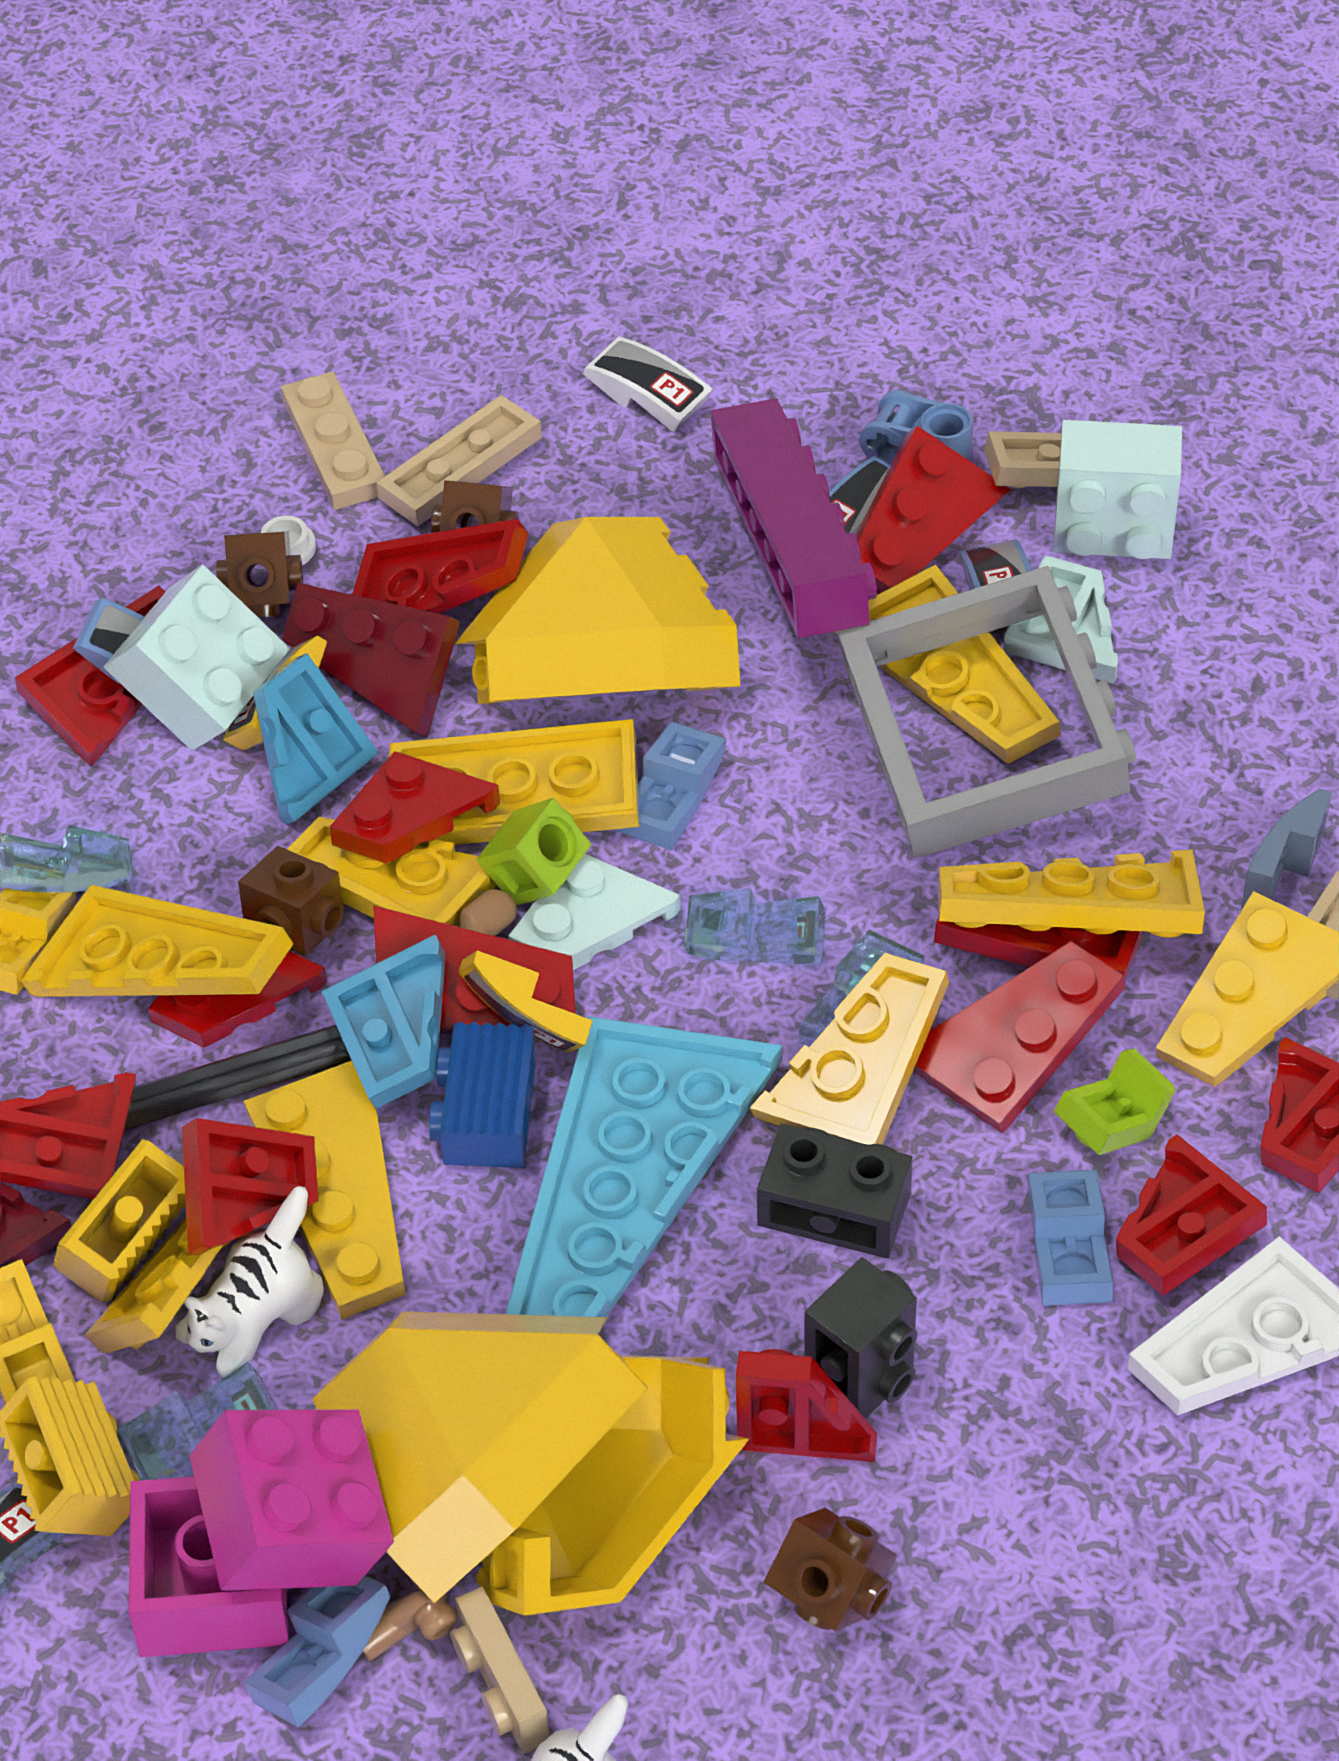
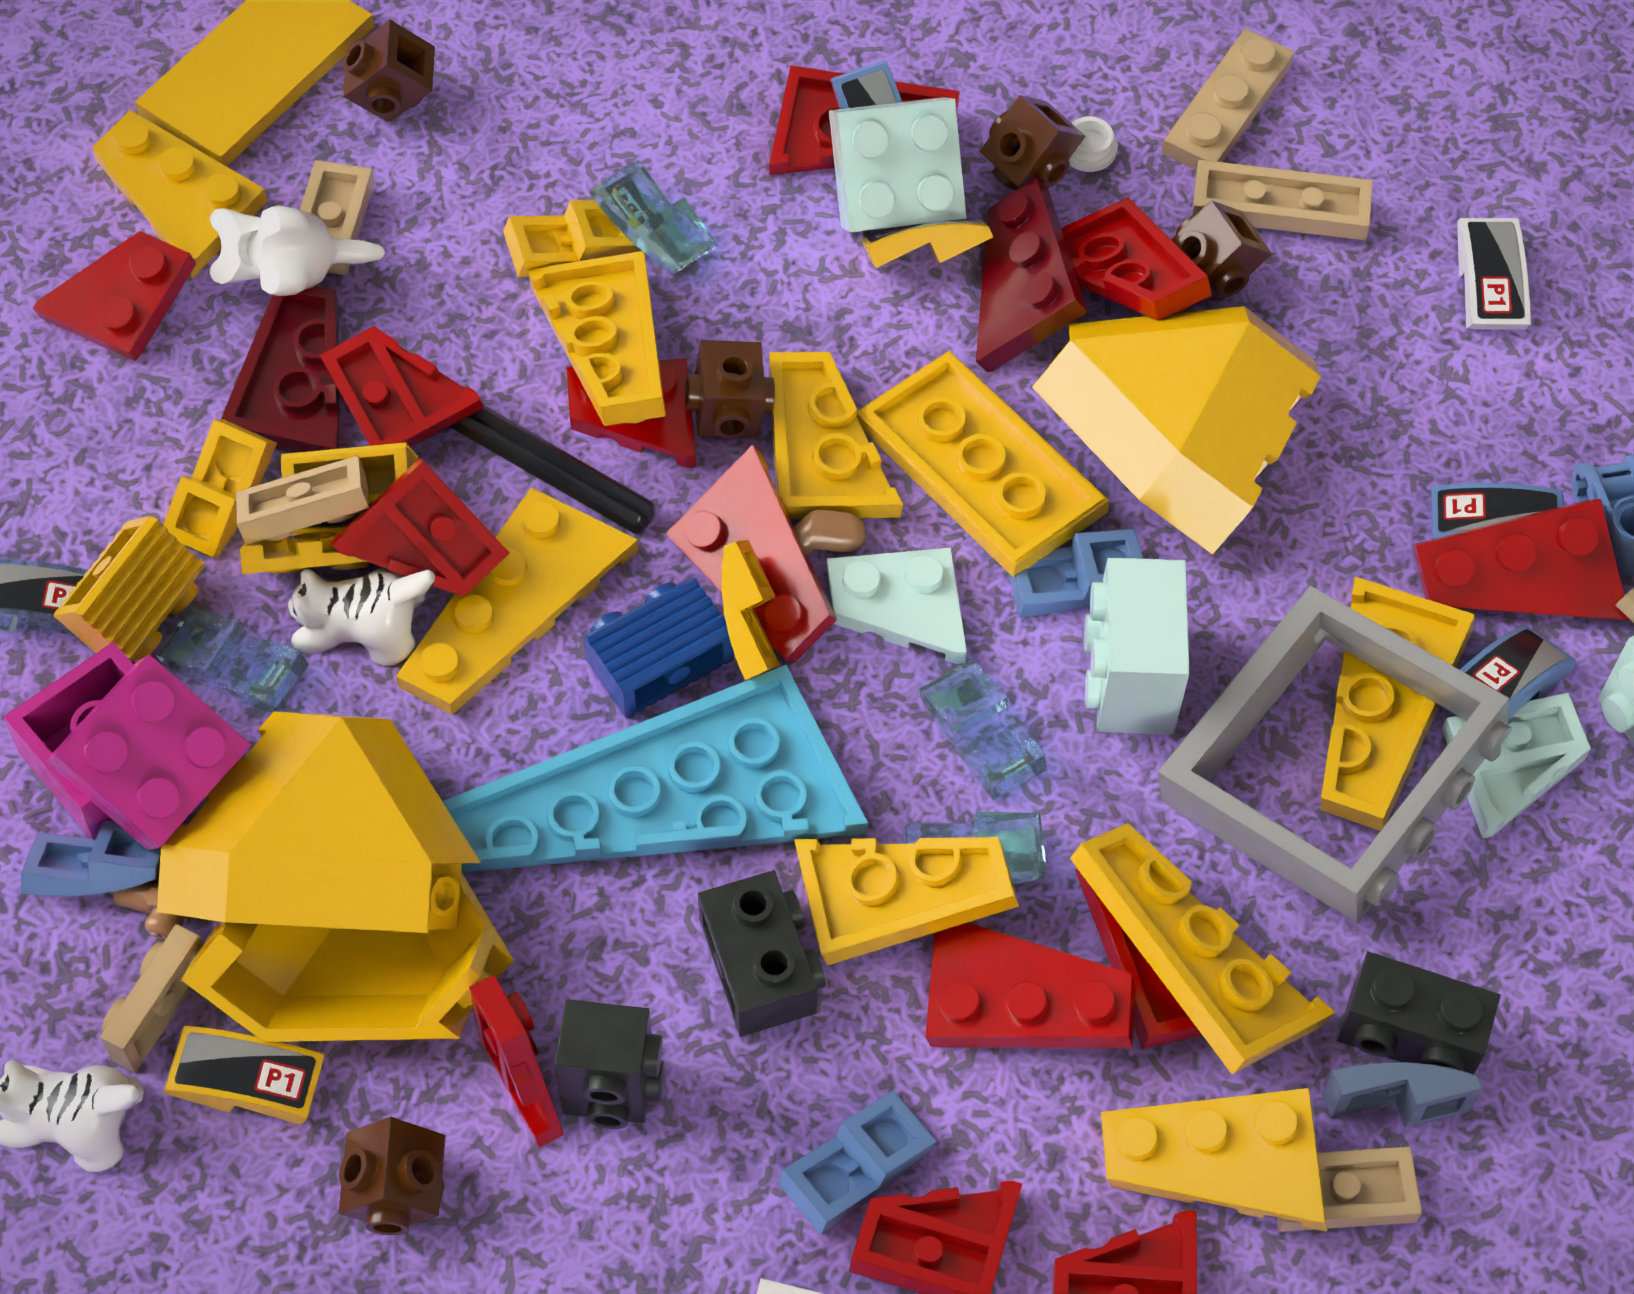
camera: 50 degrees right, 10 degrees up
(129, 1247) = (302, 500): none -> tan plate
(307, 737) = (894, 291): dark azure wing -> none
(393, 1020) = (663, 532): dark azure wing -> none
(408, 805) = (881, 403): red wing -> none
(534, 851) = (893, 501): lime brick -> none
(630, 1640) = (243, 1071): none -> slope
(789, 769) = (1138, 646): none -> light aqua brick
(792, 519) = (1409, 471): magenta brick -> none
(1118, 1108) = (1007, 1117): lime bracket -> none
(1235, 801) = (1417, 1015): none -> pearl dark grey brick

